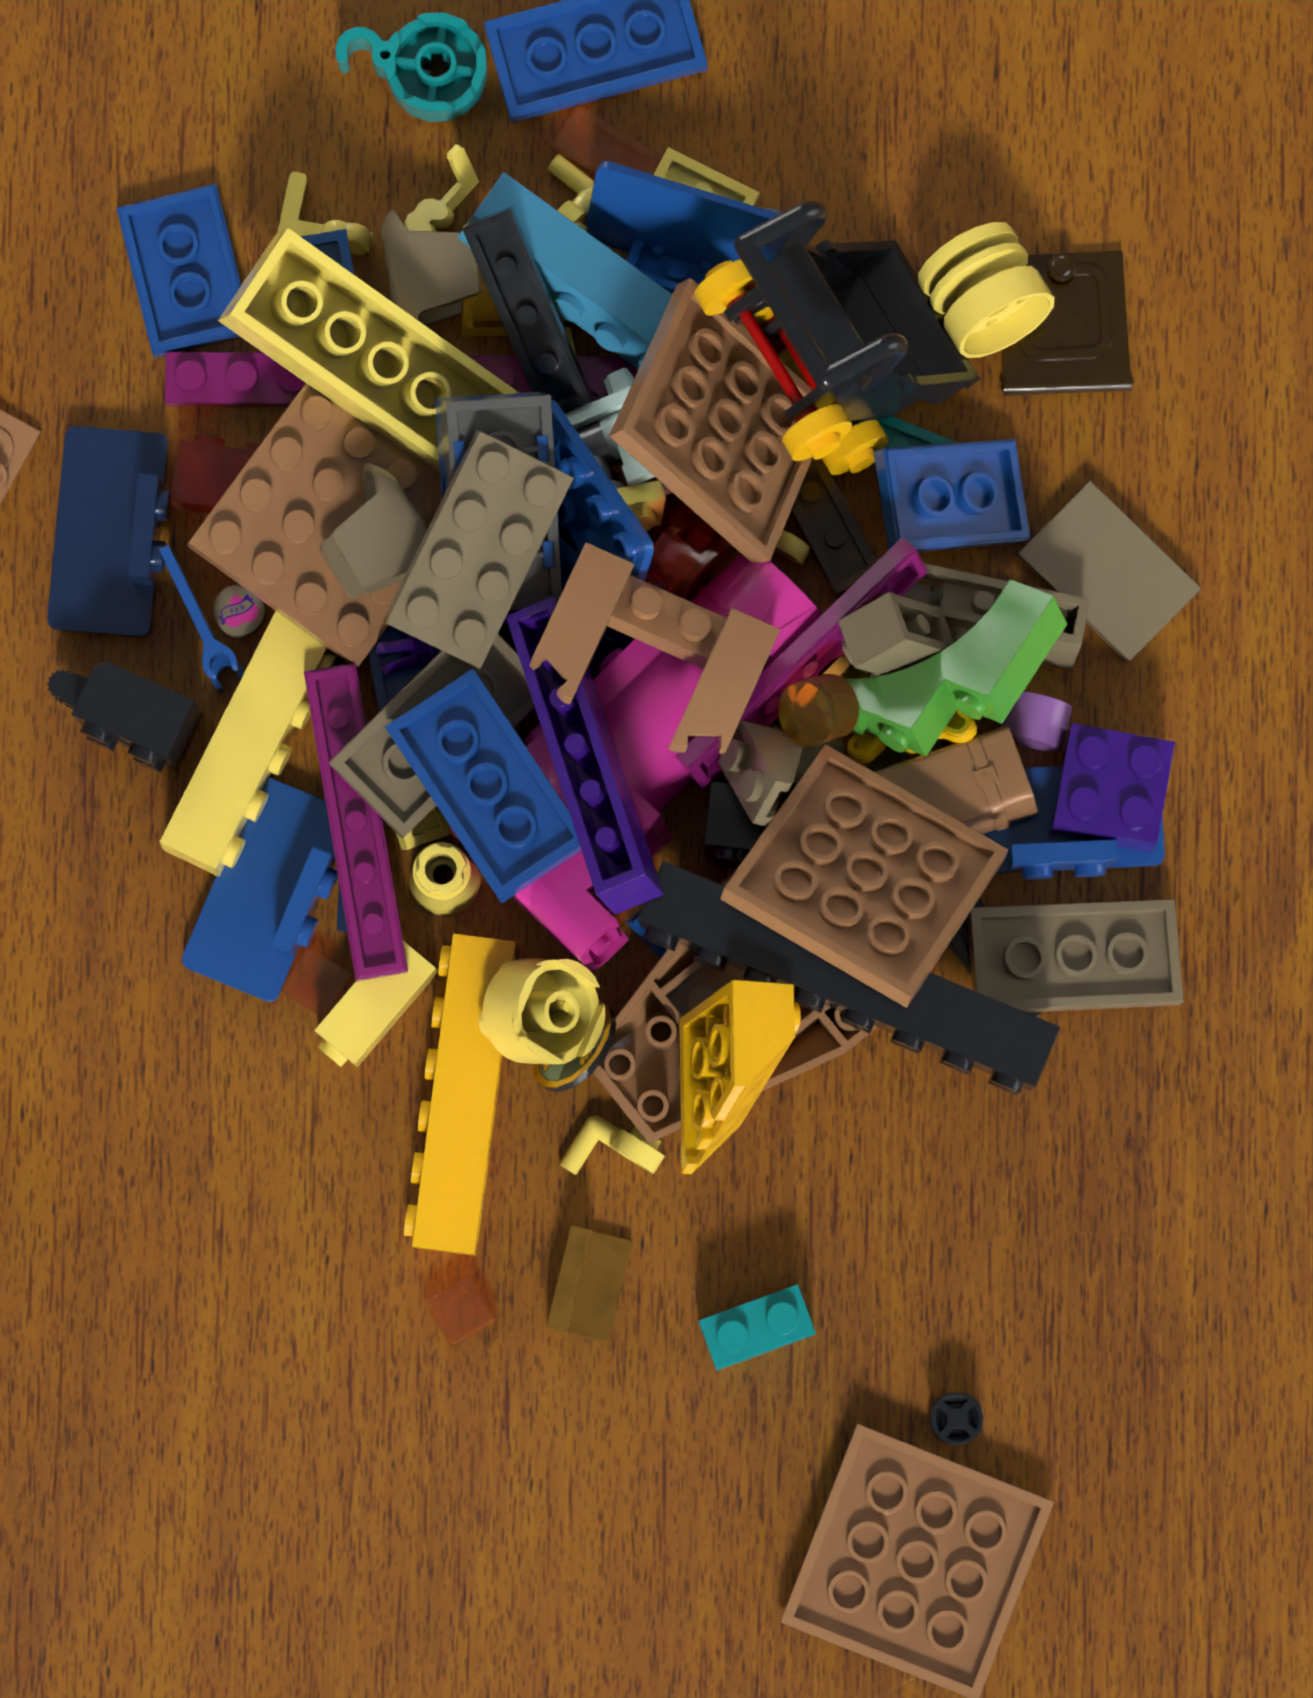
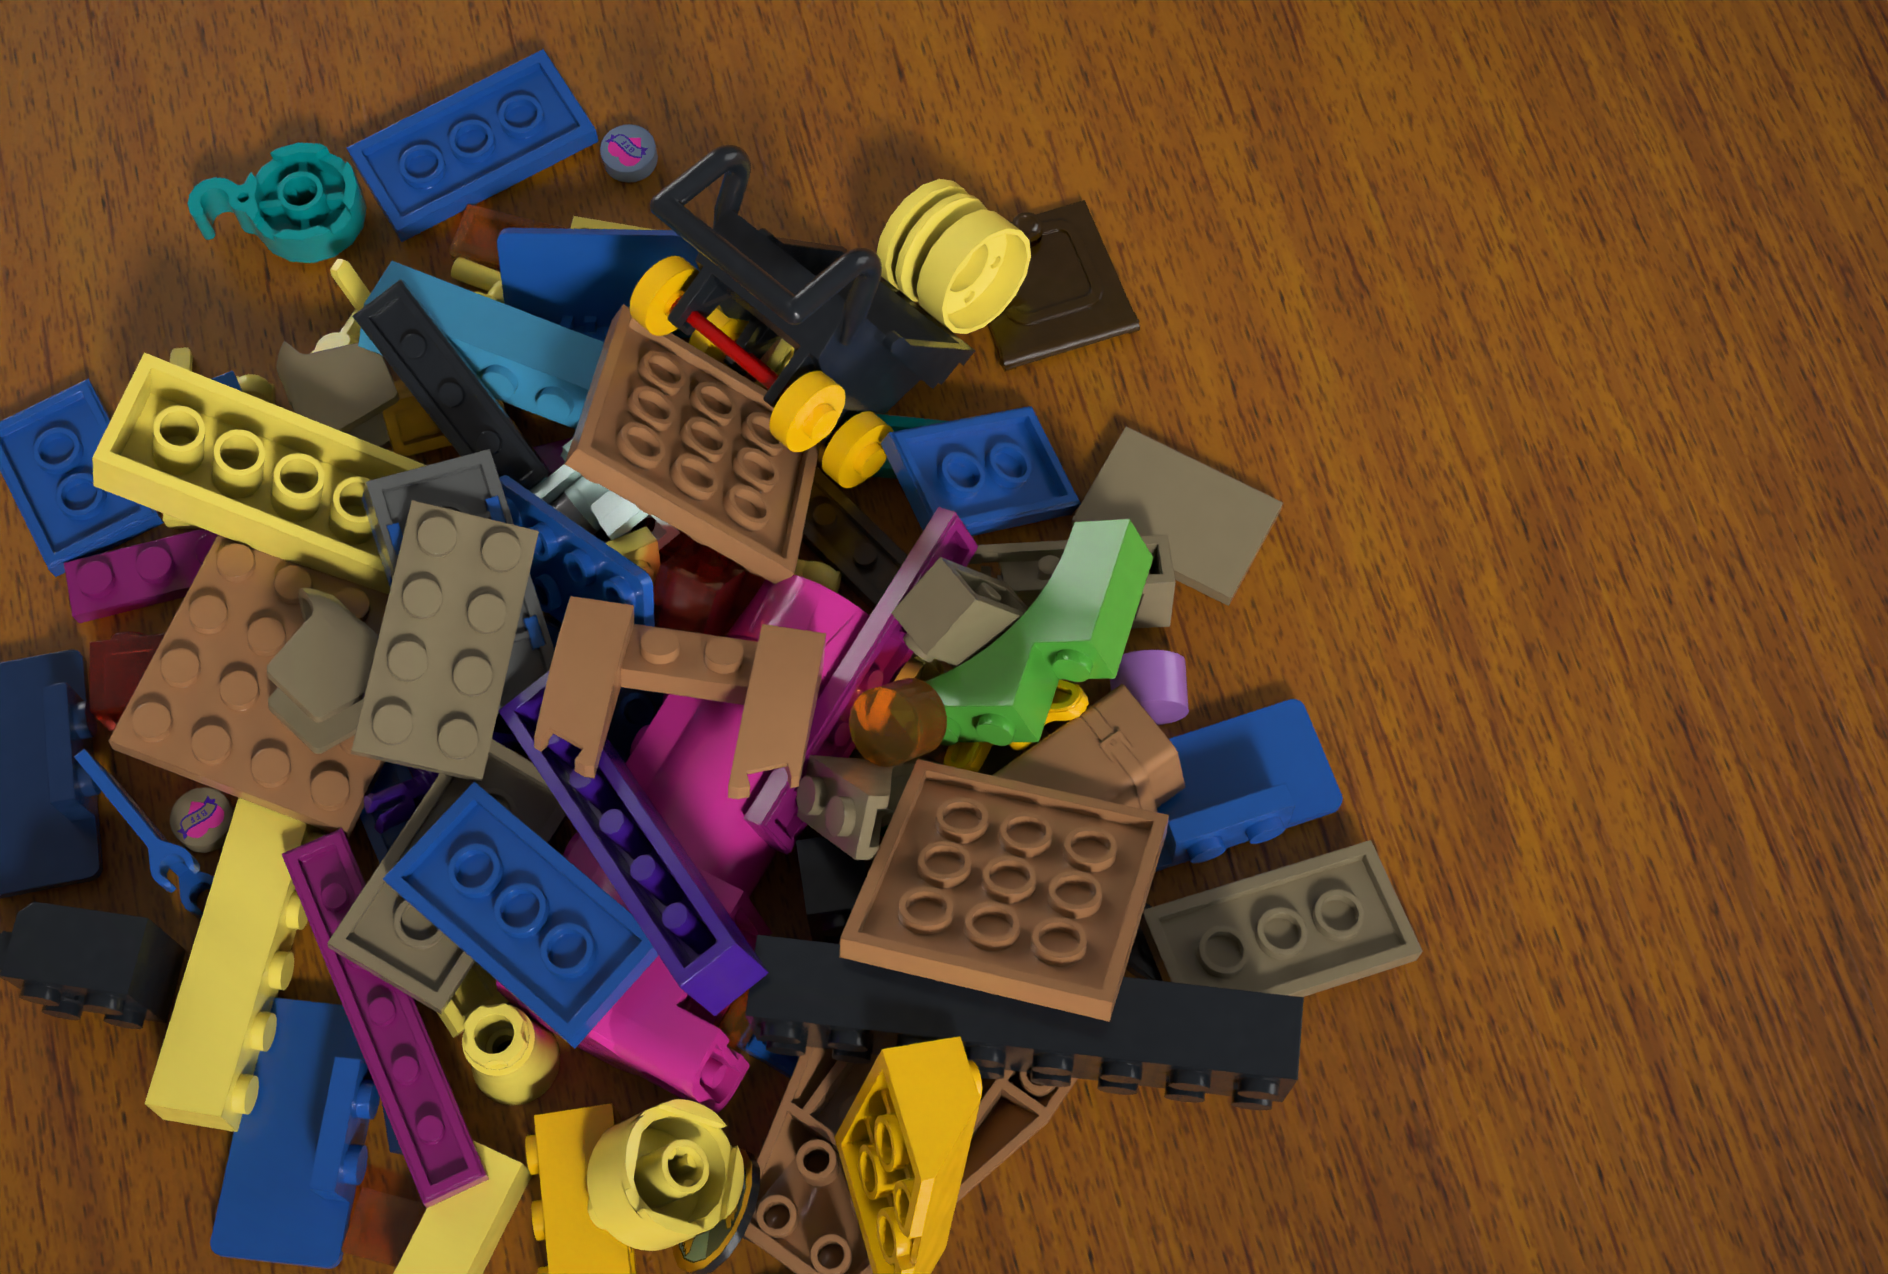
camera: 15 degrees left, 15 degrees down
(731, 90) = (629, 153): none -> sand blue tile
(1112, 787) = (1260, 729): dark purple brick -> none

